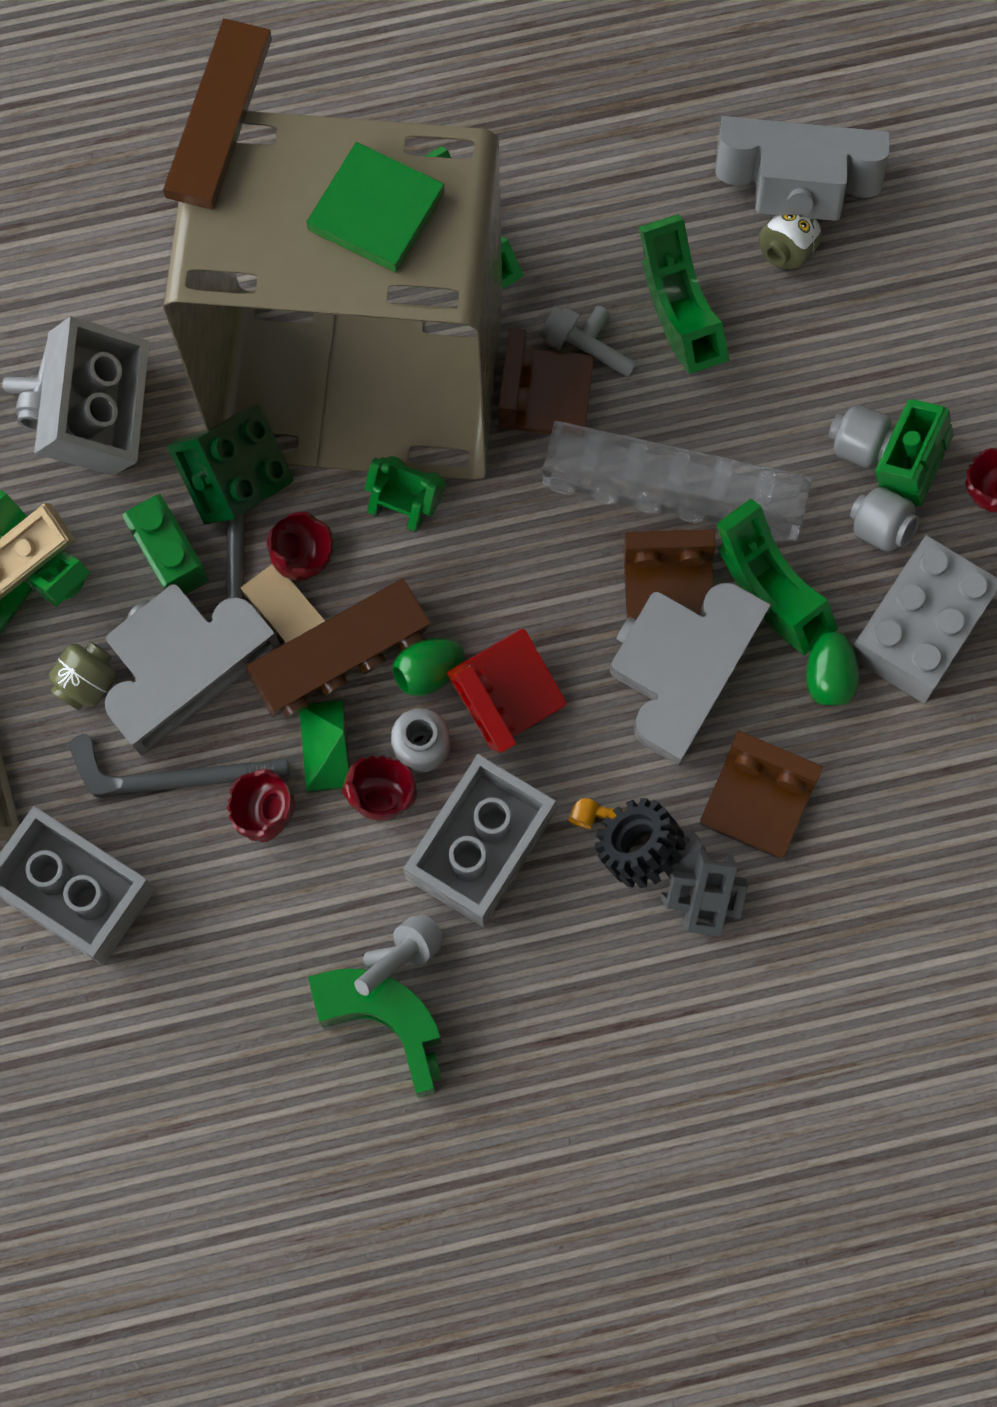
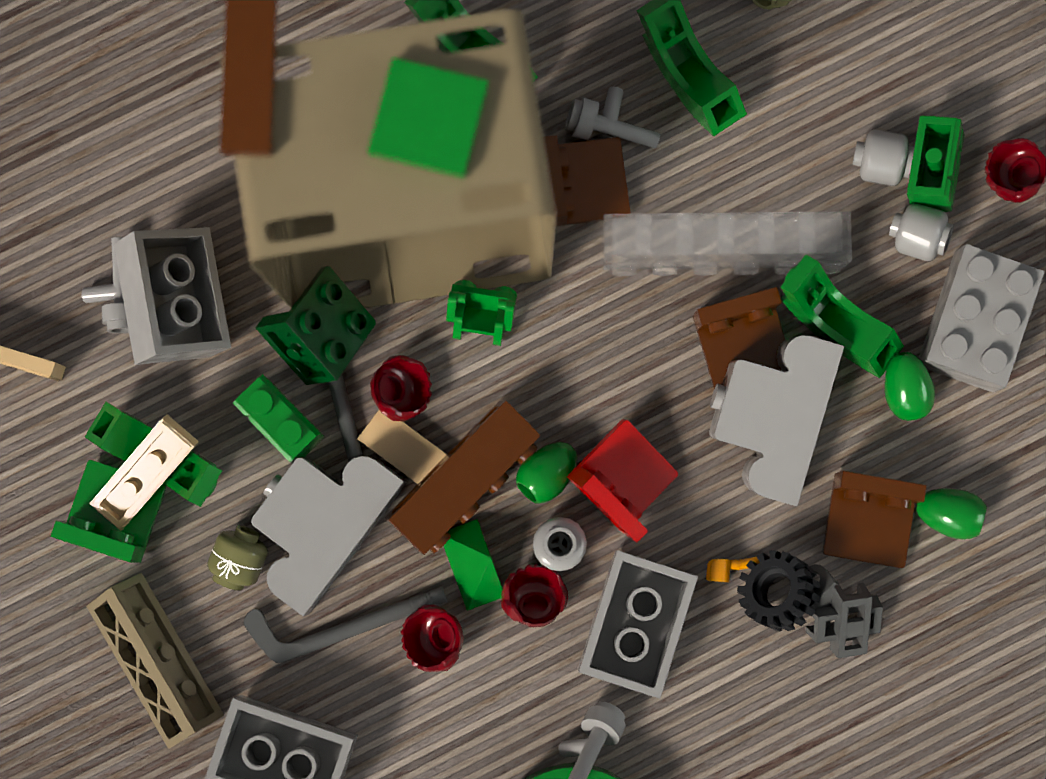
camera: 15 degrees left, 10 degrees up
(849, 811) = (953, 512): none -> green animal

